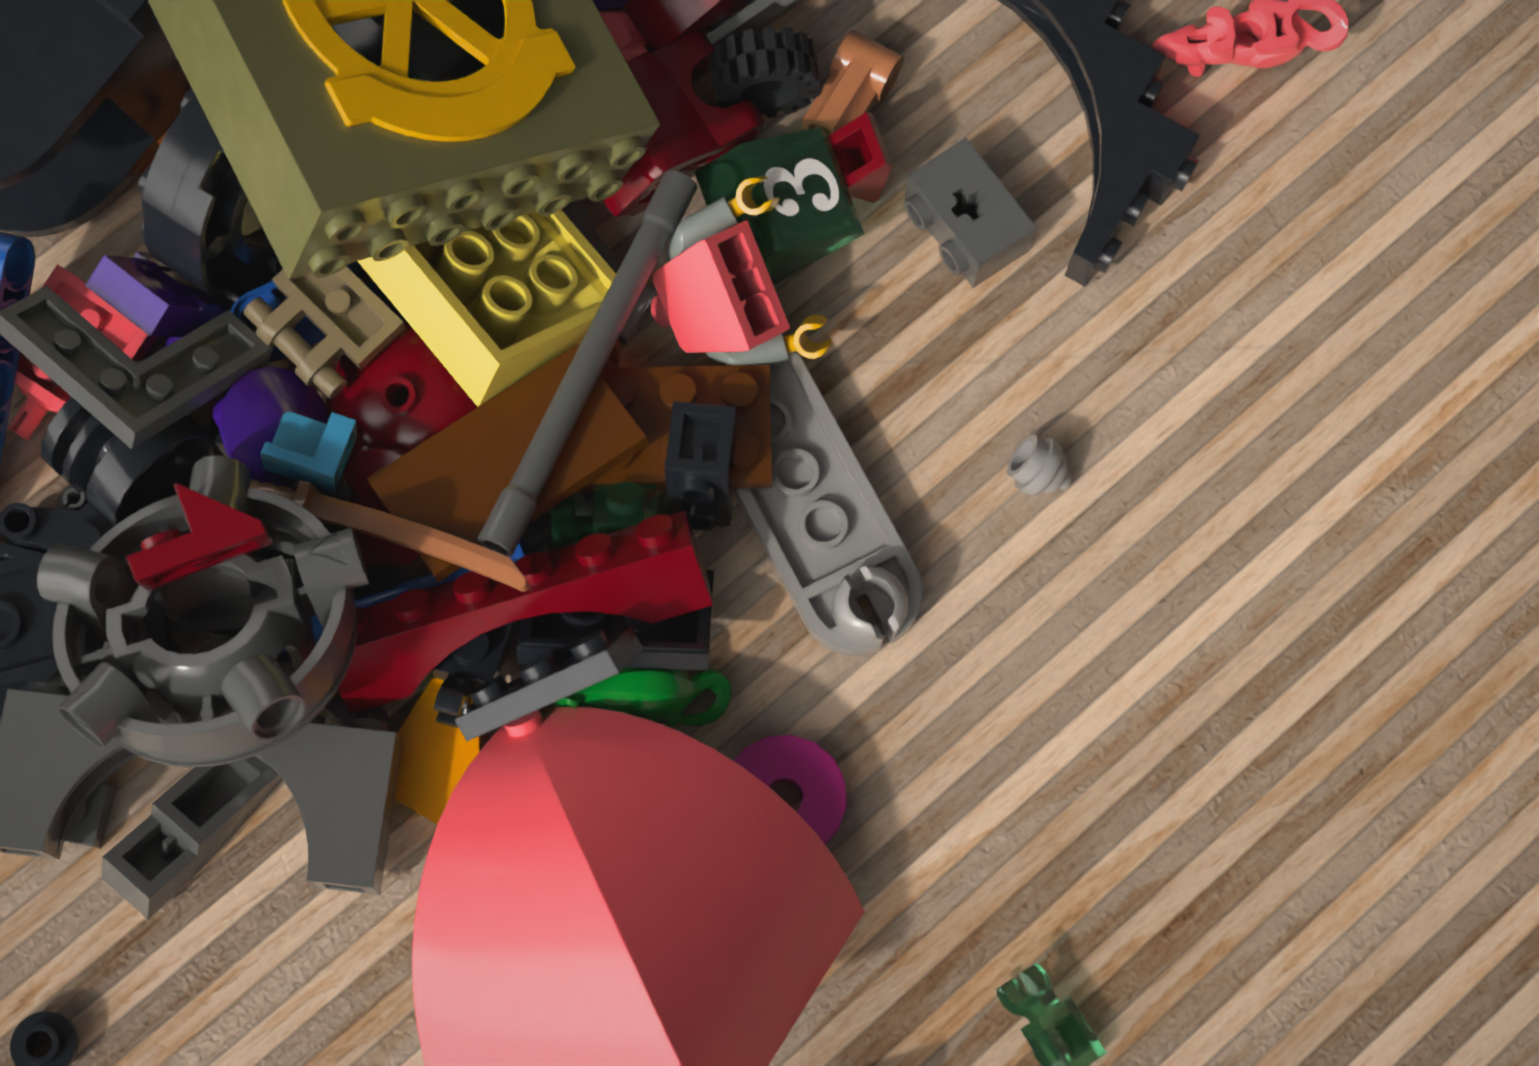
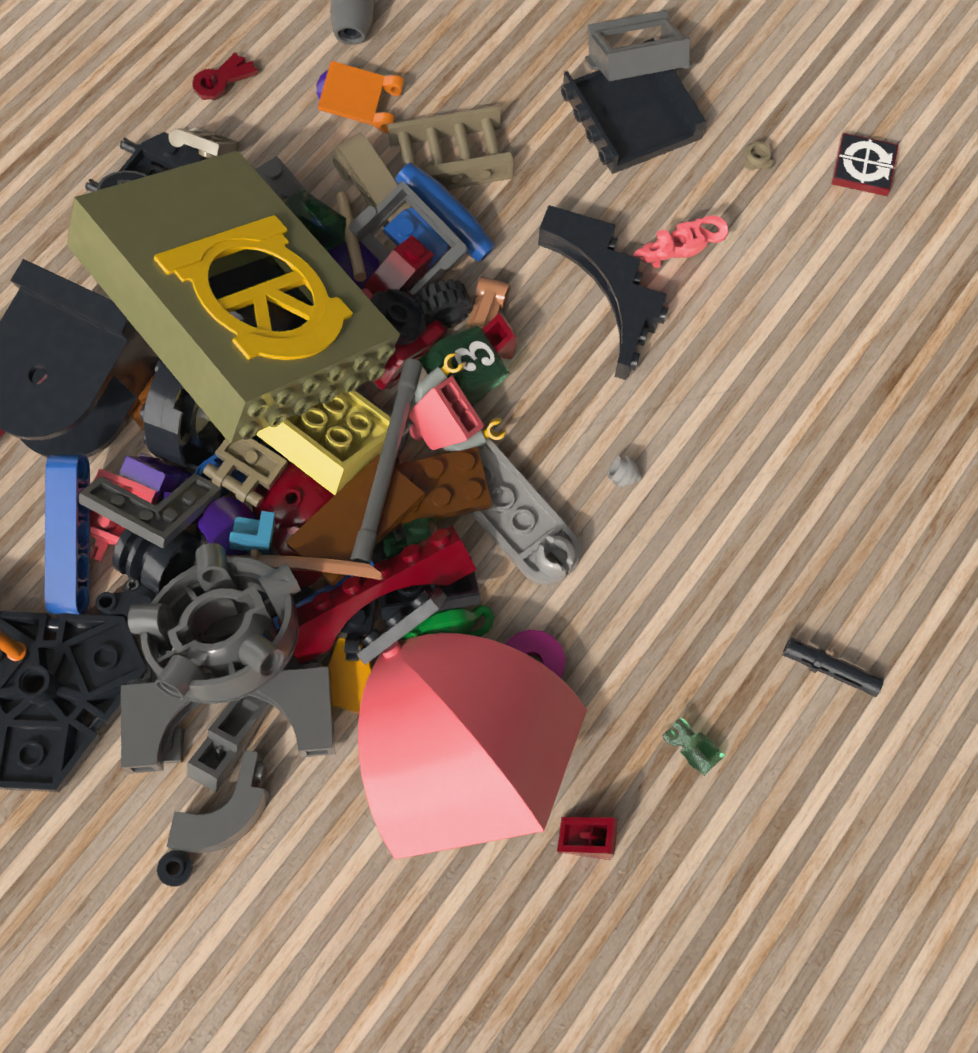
camera: 10 degrees left, 5 degrees down
(163, 981) = (230, 823): none -> dark grey arch
(215, 537) = (219, 580): dark red slope -> none
(676, 78) = (402, 313): none -> black tile
(700, 463) = (454, 501): black bracket -> none
(966, 185) = (560, 354): dark grey brick -> none
(1330, 911) = (820, 661): none -> black pin

